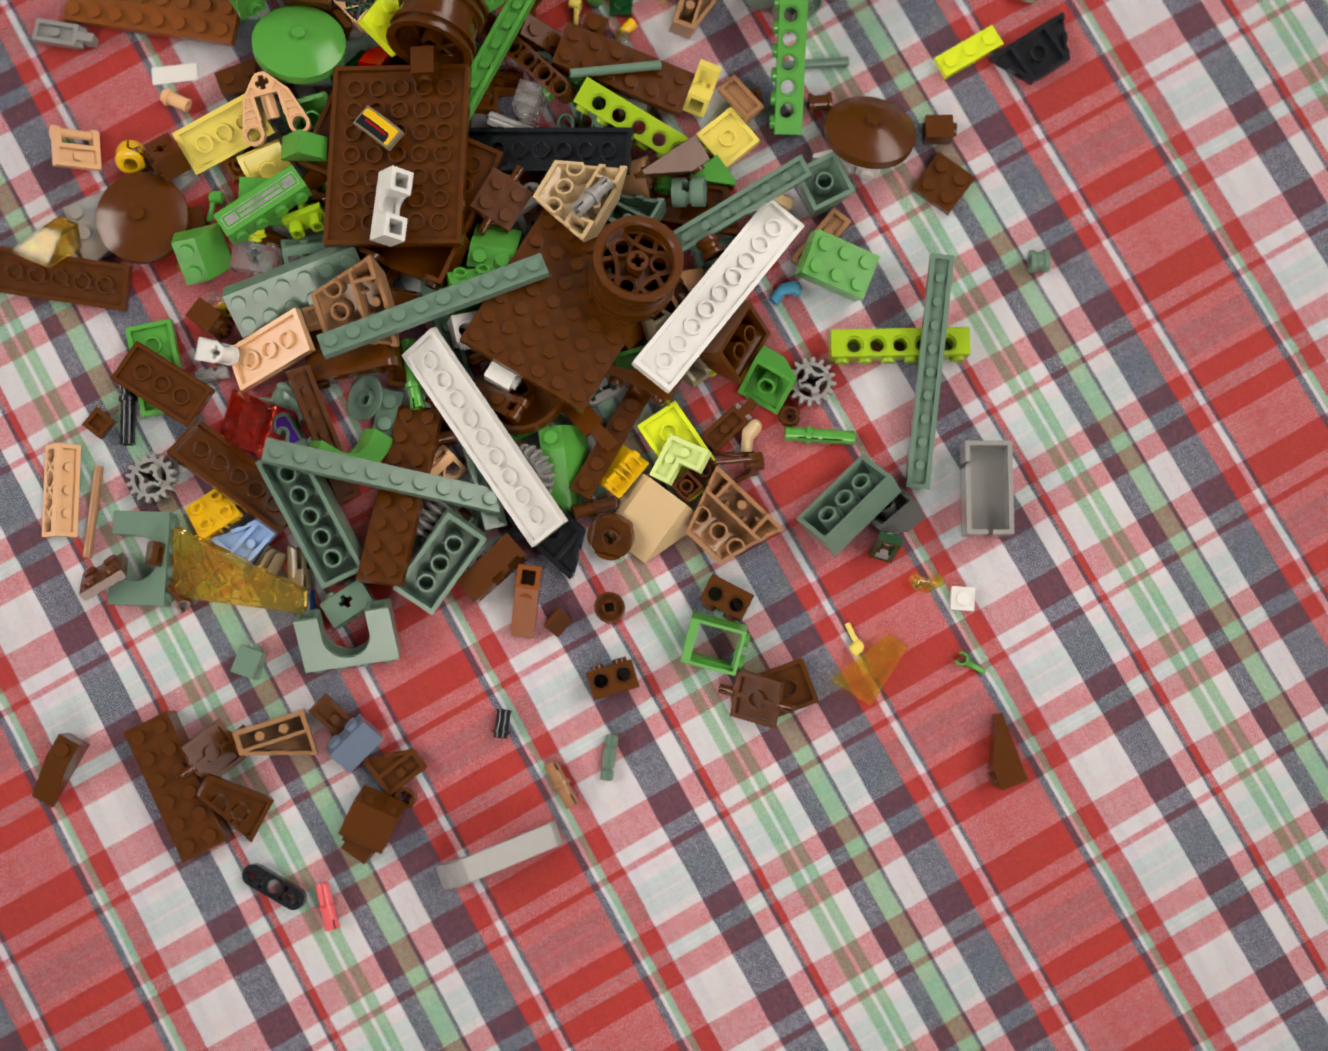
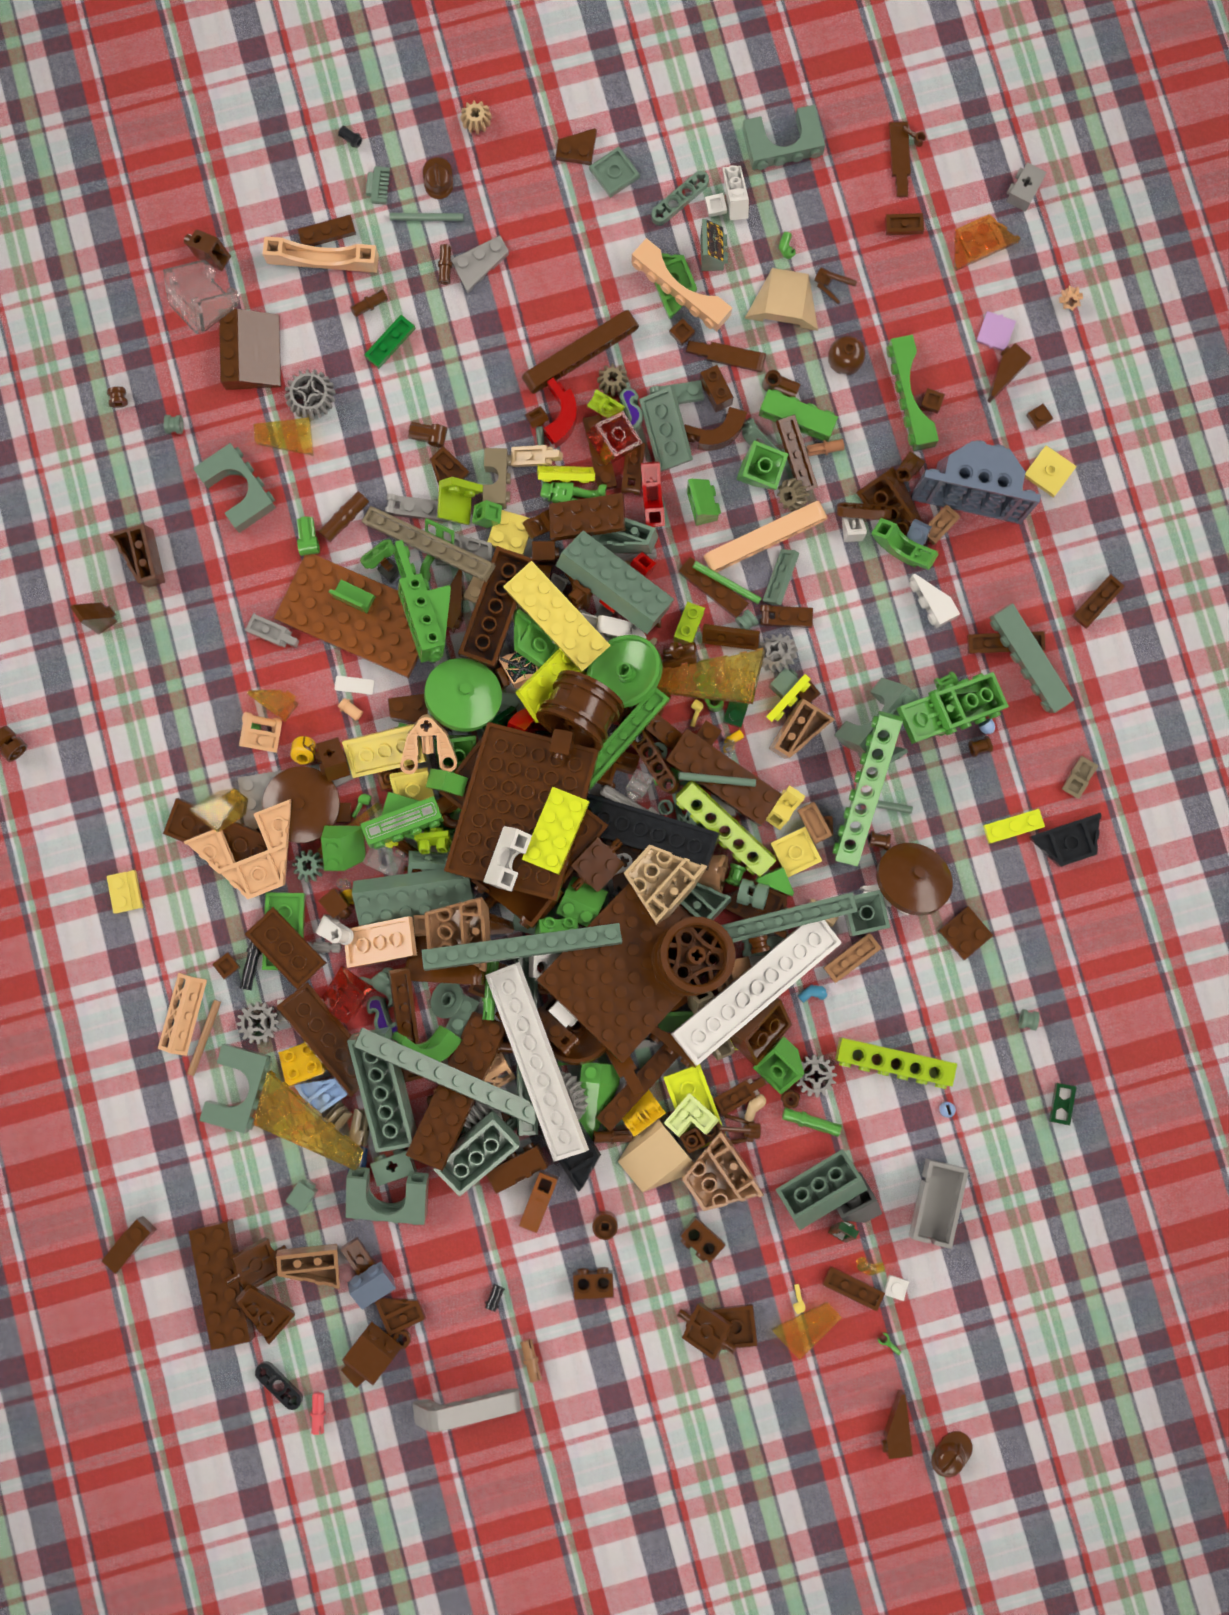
camera: 15 degrees right, 0 degrees up
(84, 110) = (276, 701): none -> clear yellow slope
(102, 577) = (201, 1097): reddish brown plate -> none
(111, 304) = (259, 872): none -> light nougat wing
(155, 553) = (246, 1089): reddish brown slope -> none
(166, 295) = (301, 868): none -> sand green gear
(179, 599) = (257, 1129): reddish brown hand -> none
(378, 128) = (512, 787): slope -> none
(441, 164) = (555, 830): none -> neon yellow plate
(558, 622) = (559, 1224): reddish brown slope -> none
(591, 196) = (672, 887): light grey pin -> none
(600, 542) = (627, 1158): reddish brown plate -> none
(609, 757) = (575, 1347): sand green axle -> none
(677, 162) = (753, 868): slope -> none
(711, 662) = (677, 1291): bright green window -> none
(836, 265) = (860, 985): bright green brick -> none
(913, 610) = (853, 1288): none -> reddish brown plate
(929, 371) = (914, 1094): sand green plate -> none
(938, 129) = (972, 887): reddish brown brick -> none
(967, 386) = (943, 1110): none -> light blue hinge
(1072, 771) = (952, 1454): none -> reddish brown piece
(1100, 345) = (1062, 1104): none -> dark green piece

